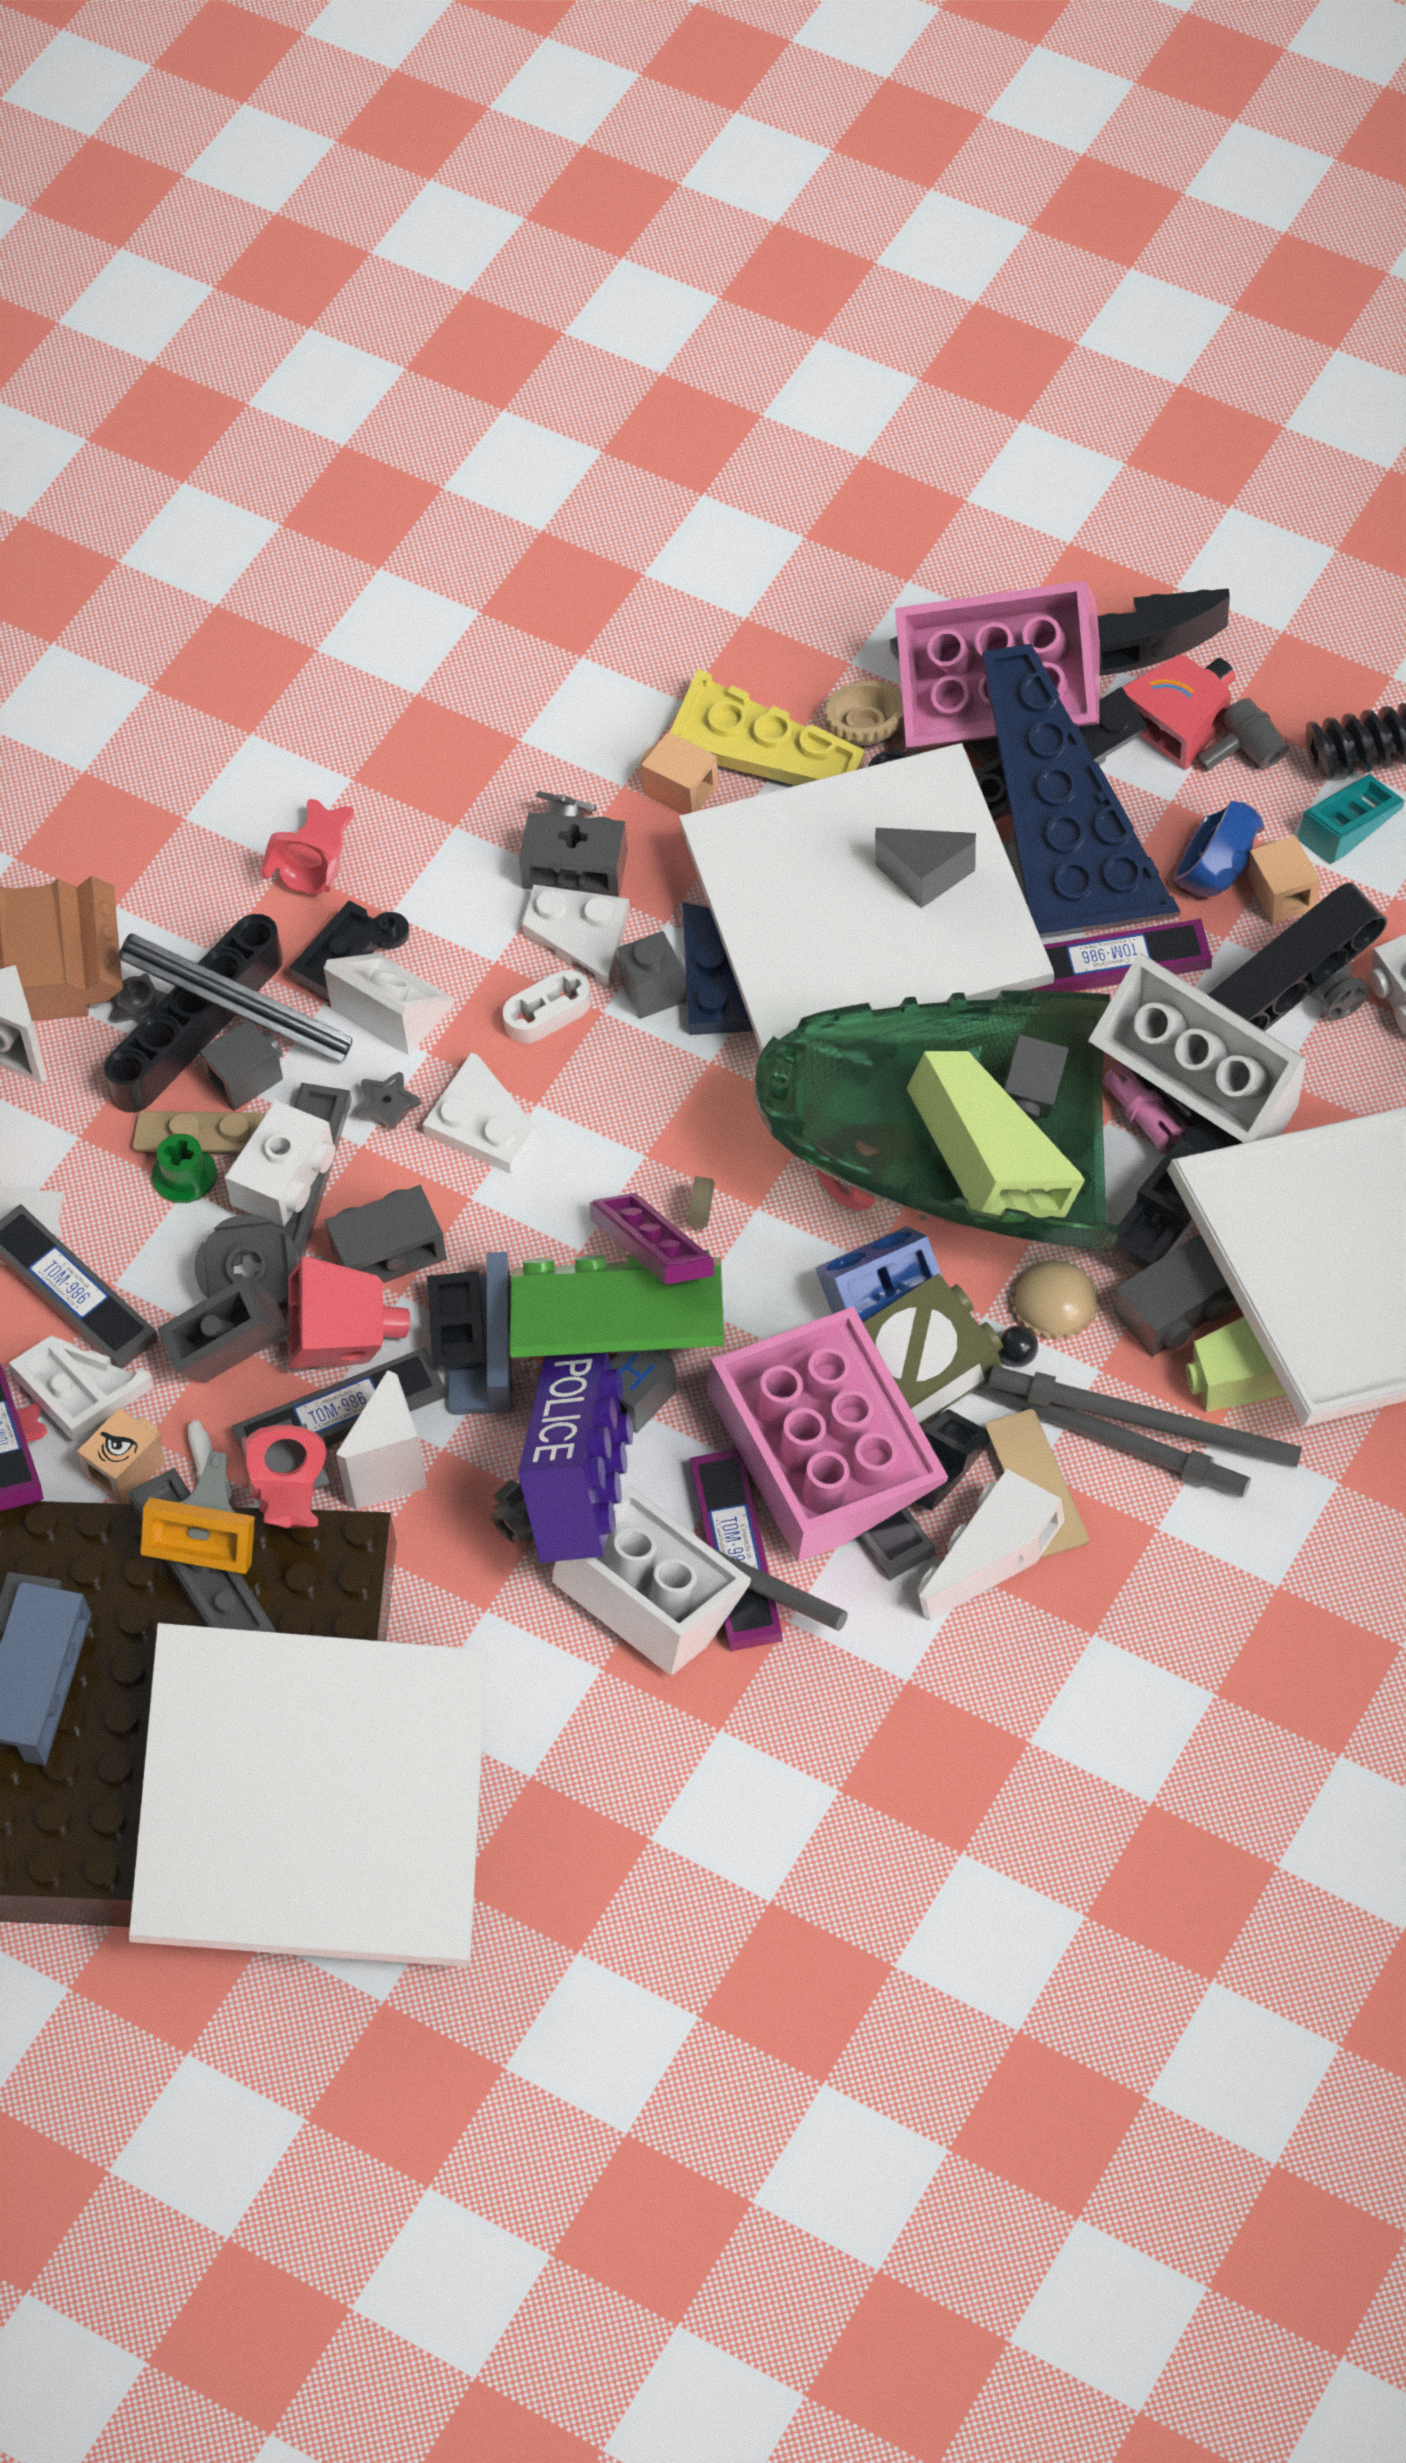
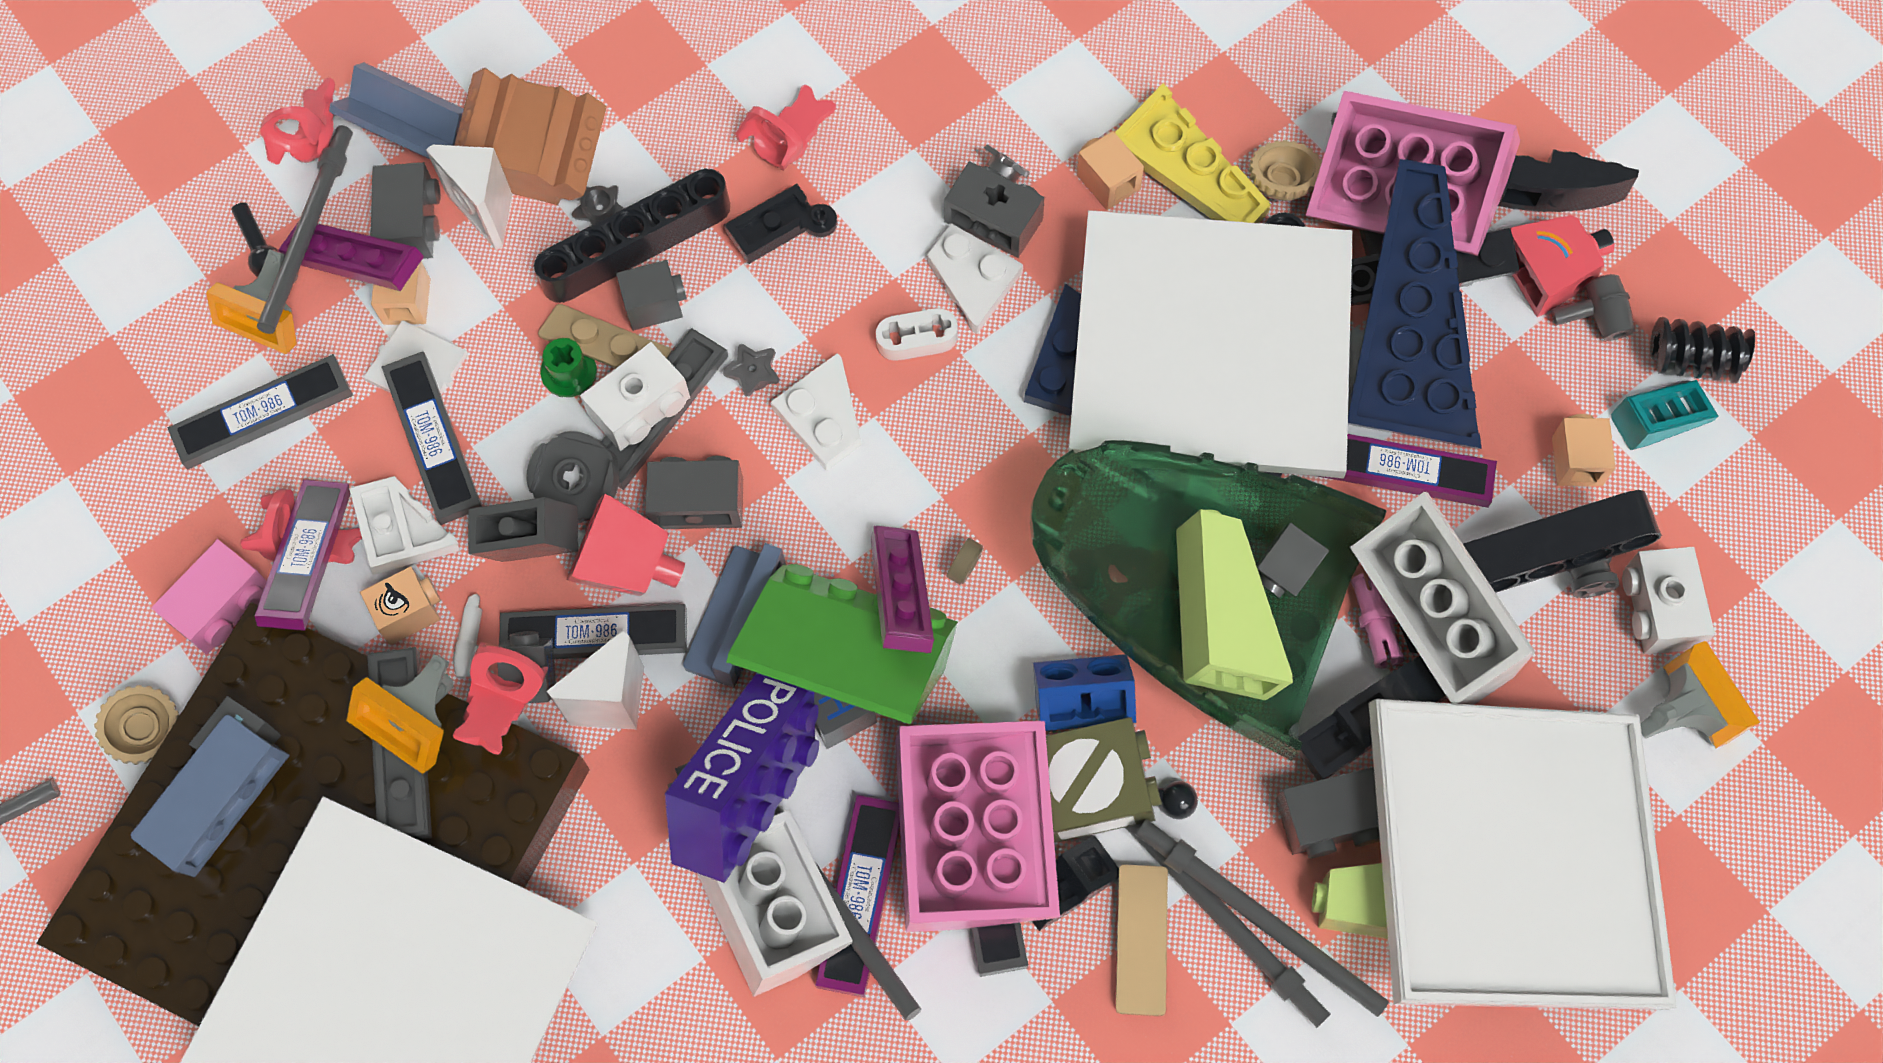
camera: 20 degrees right, 10 degrees up
(235, 998) = (662, 237): axle -> none
(385, 999) = (792, 278): white slope -> none
(456, 1320) = (718, 591): black slope -> none
(651, 974) = (1010, 339): dark grey brick -> none
(925, 860) = (1274, 329): dark grey slope -> none
(1001, 1540) = (1085, 989): white slope -> none
(1055, 1300) = (1229, 768): tan hat -> none
(1219, 850) = (1536, 404): blue piece -> none

